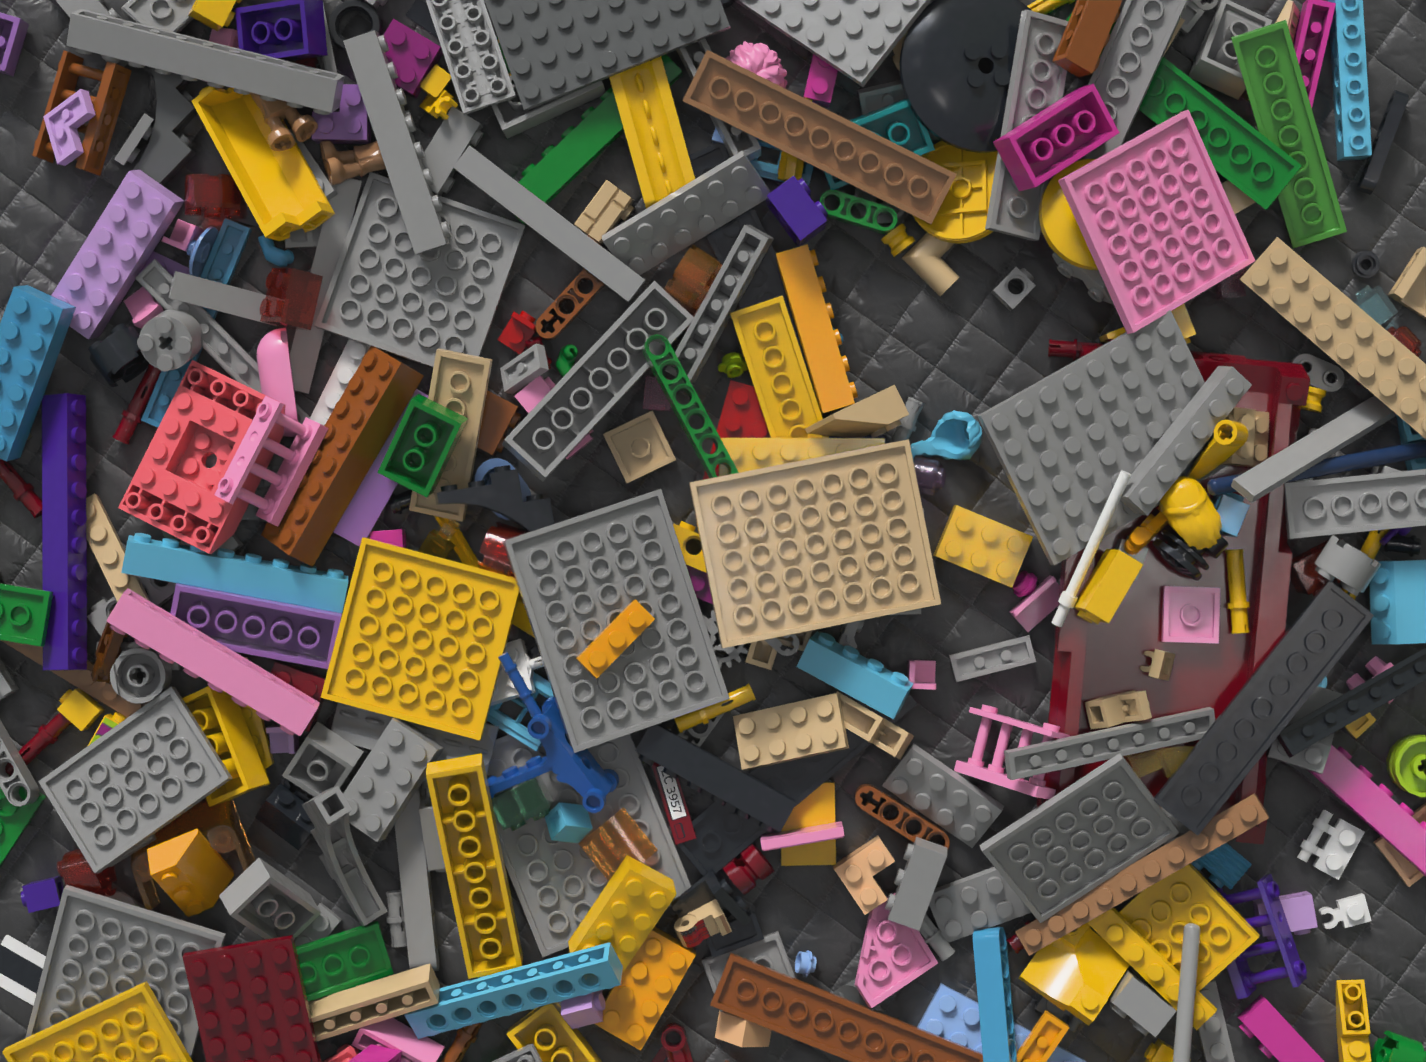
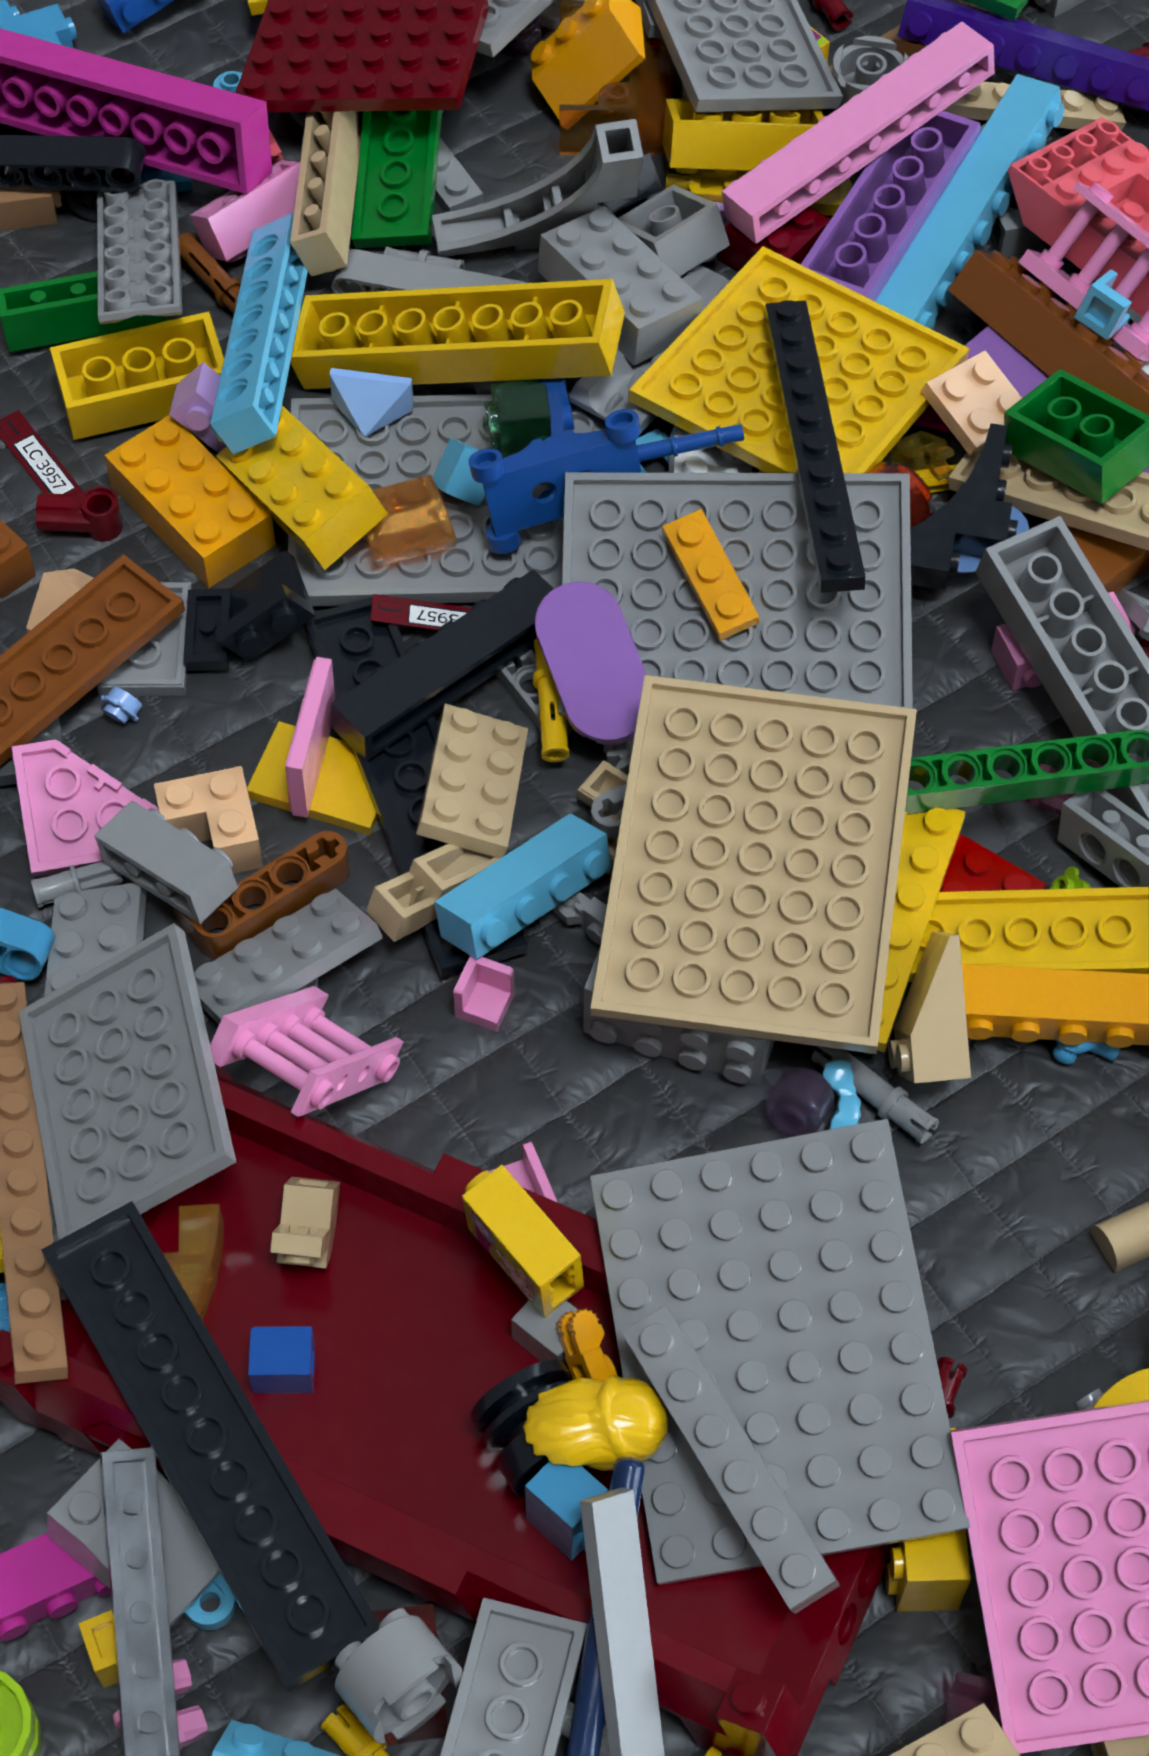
camera: 105 degrees right, 30 degrees down
(80, 708) = (844, 25): yellow brick -> none
(269, 902) = (508, 121): light grey brick -> none
(311, 458) = (1103, 307): none -> medium azure panel
(405, 519) = (971, 399): none -> light nougat plate
(499, 607) = (814, 448): none -> black plate
(534, 904) = (371, 398): none -> light blue slope
(639, 447) = (978, 722): tan plate -> none
(695, 688) = (591, 661): none -> medium lavender tile
(701, 924) = (242, 578): tan leg -> none
(748, 869) = (288, 664): dark red wheel -> none
(983, 546) = (657, 1123): yellow brick -> none
(992, 658) = (467, 1100): light grey plate -> none
(1003, 294) = (1076, 1321): light grey brick -> none
(1024, 584) = (568, 1189): dark pink plate -> none
(1068, 598) = (608, 1250): white bar -> none
(1108, 743) = (259, 1169): light grey plate -> none
(1161, 664) = (350, 1320): tan tile -> none
(1190, 614) = (415, 1401): bright pink plate -> none
(1195, 690) = (282, 1359): none -> blue panel
(1219, 448) = (702, 1520): yellow piece -> none
(1237, 591) = (423, 1494): yellow pin -> none
(1256, 446) = (697, 1586): tan plate -> none

